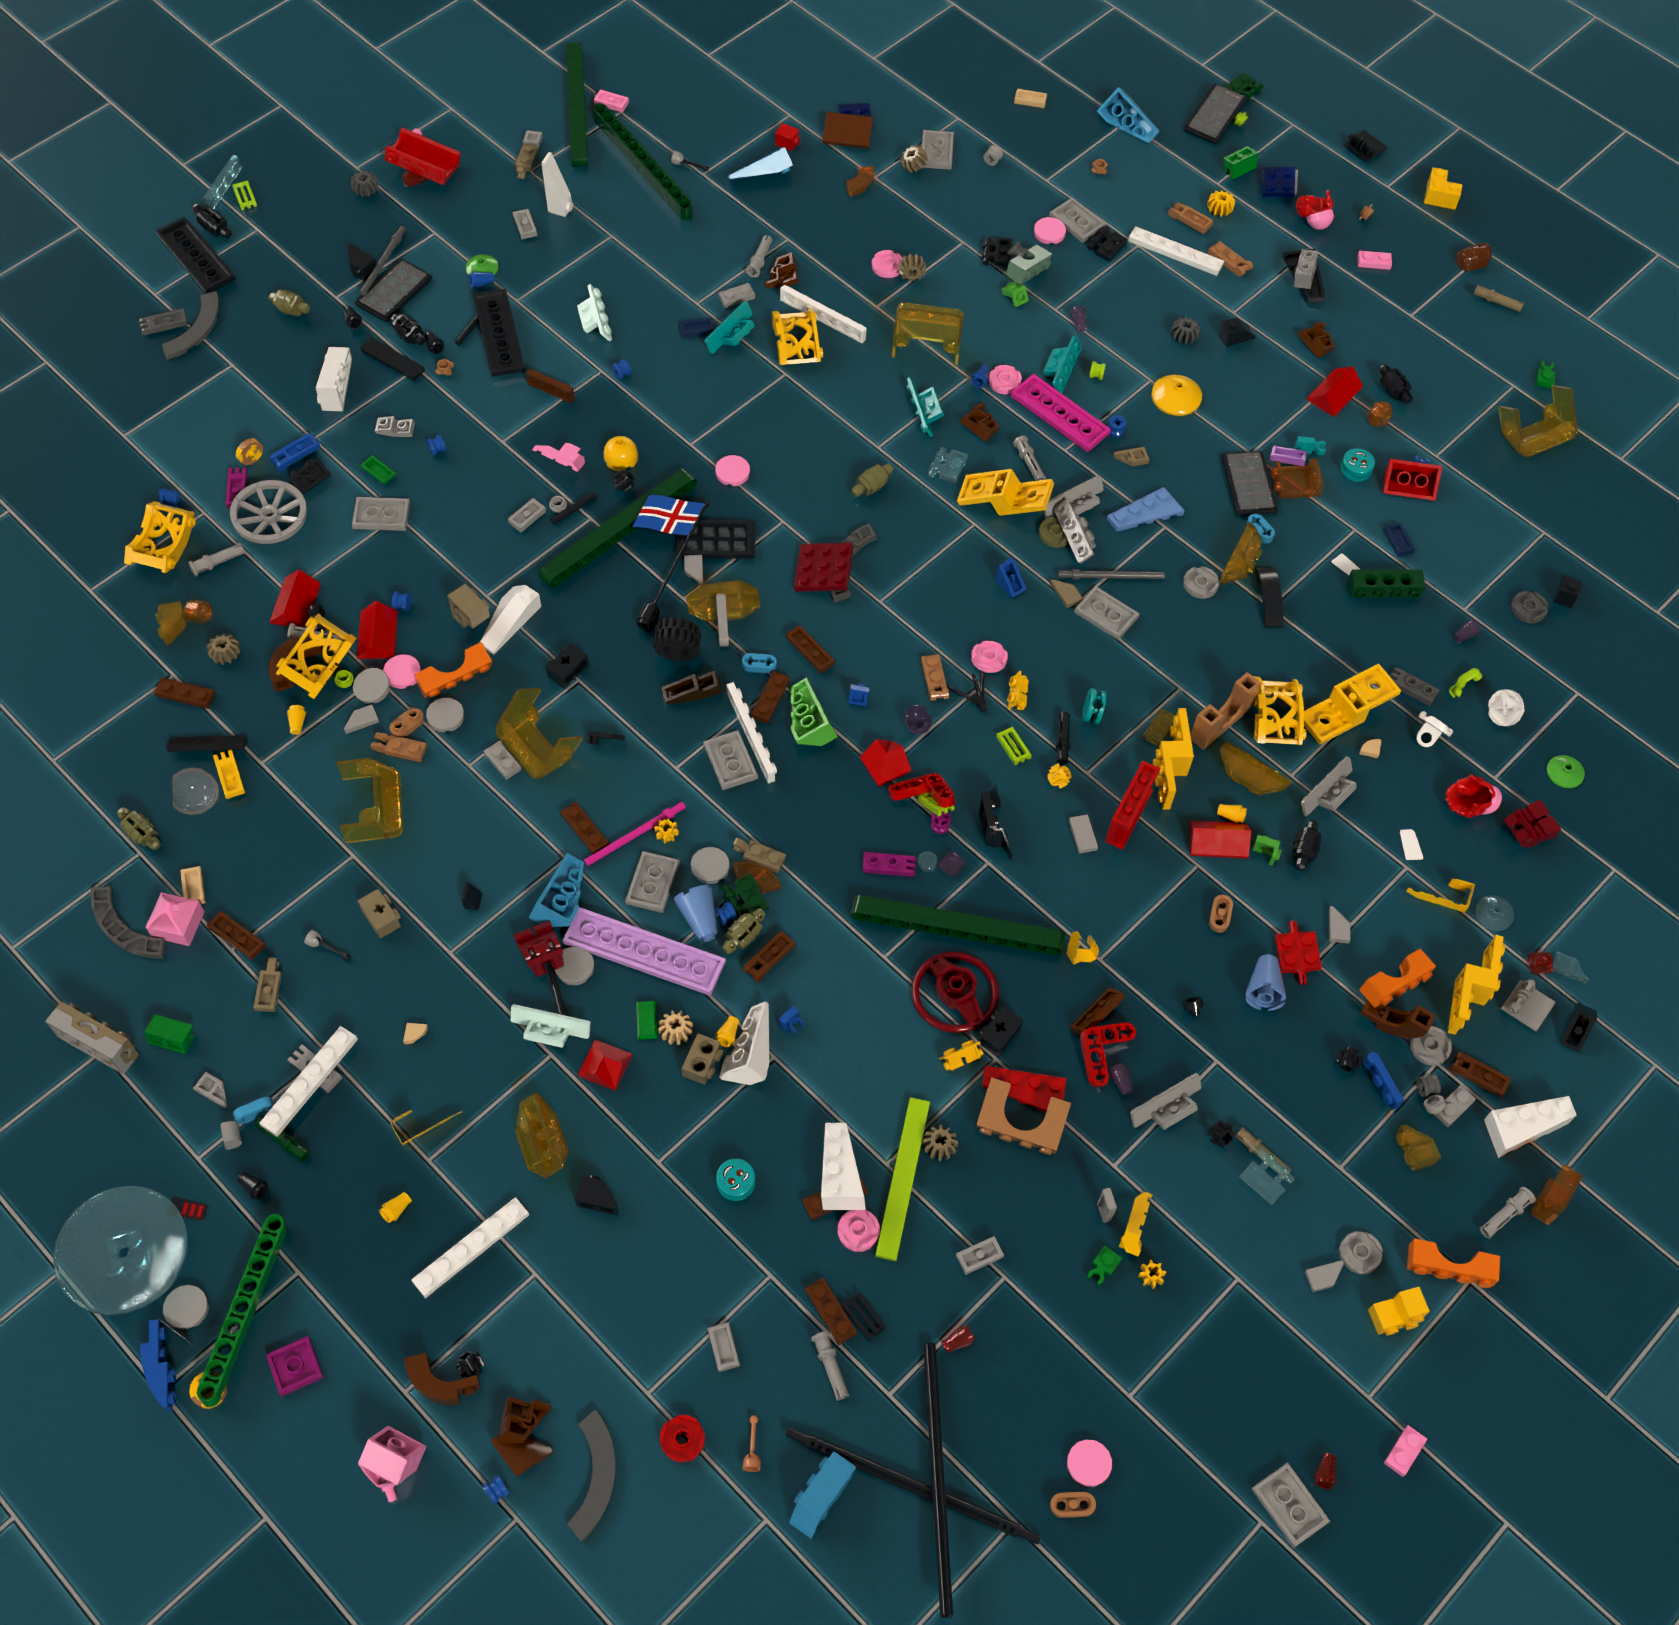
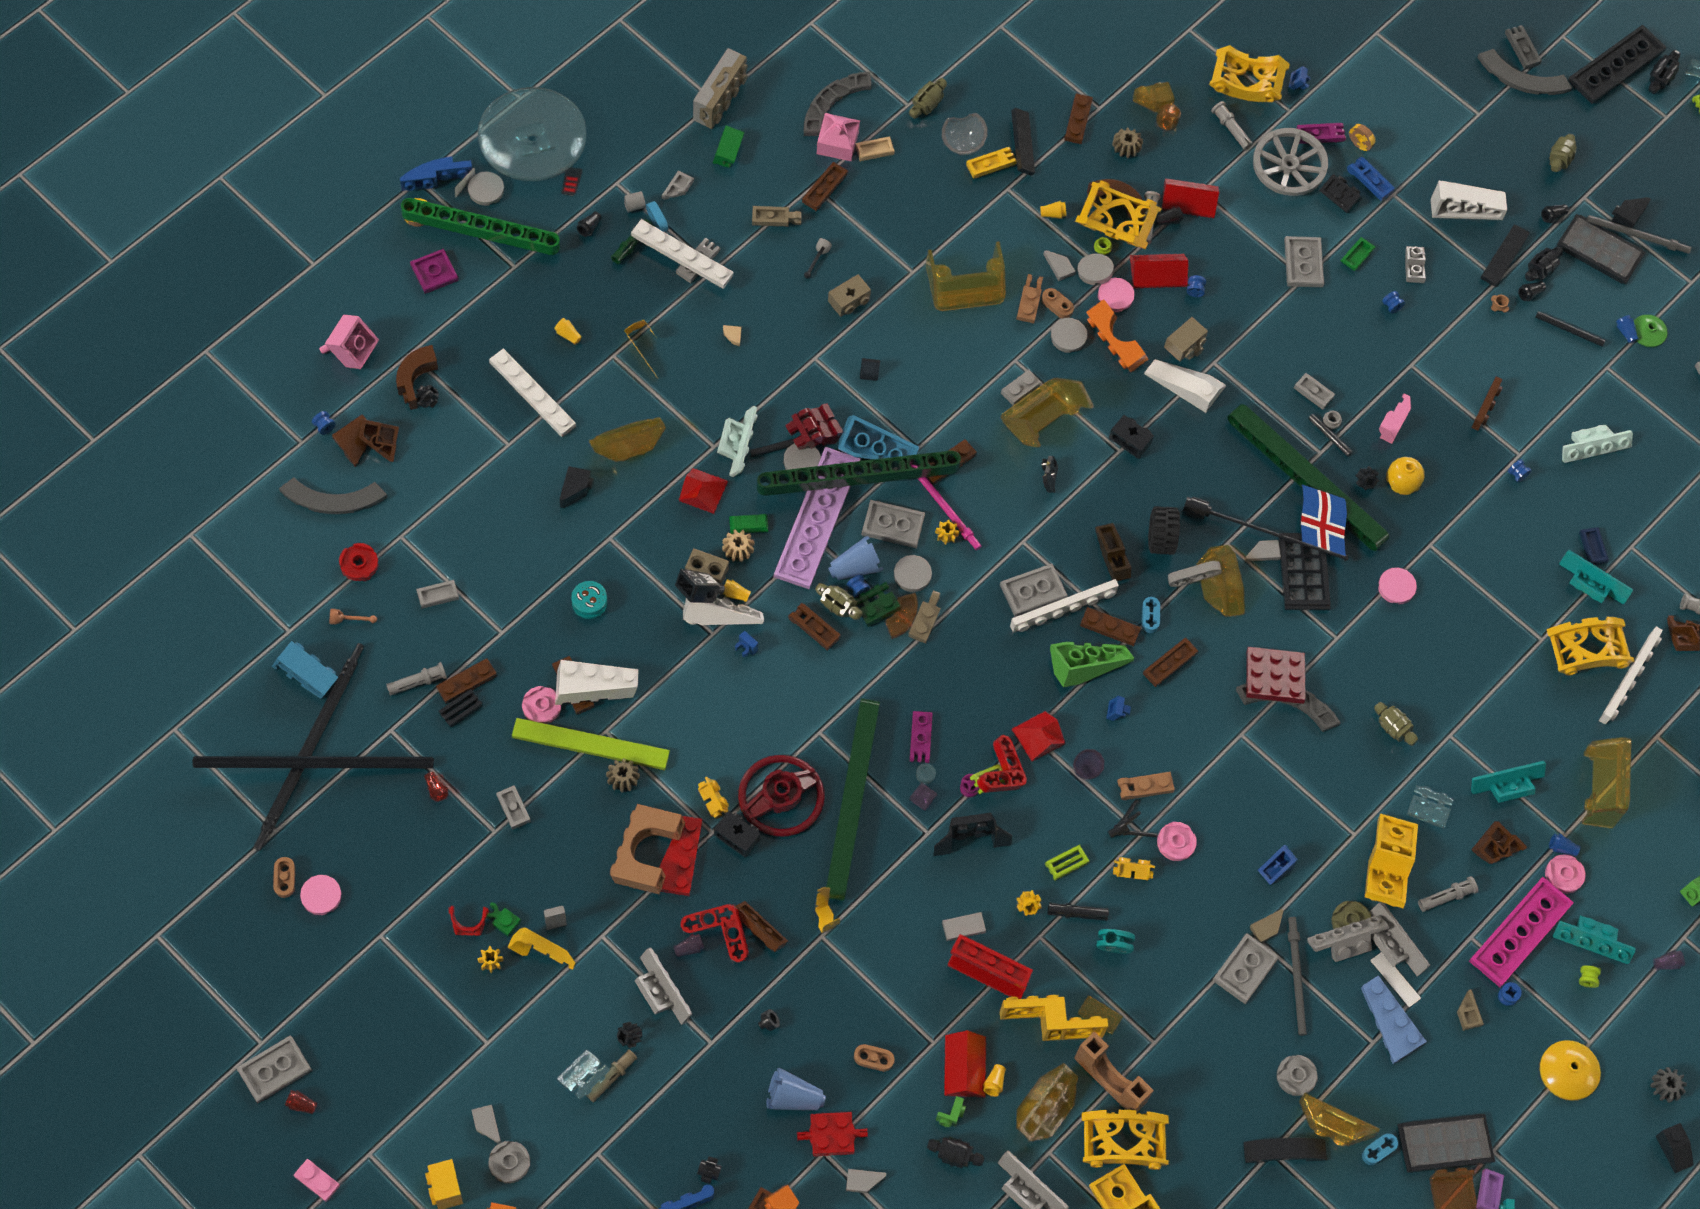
camera: 85 degrees right, 5 degrees up
(491, 339) = (1547, 359): black plate -> none
(599, 914) = (851, 478): none -> dark green beam
(731, 1061) = (698, 586): none -> black torso
(736, 295) = (1647, 586): light grey plate -> none
(1106, 506) = (1395, 979): none -> white sticker
(1118, 1292) = (463, 930): none -> red helmet

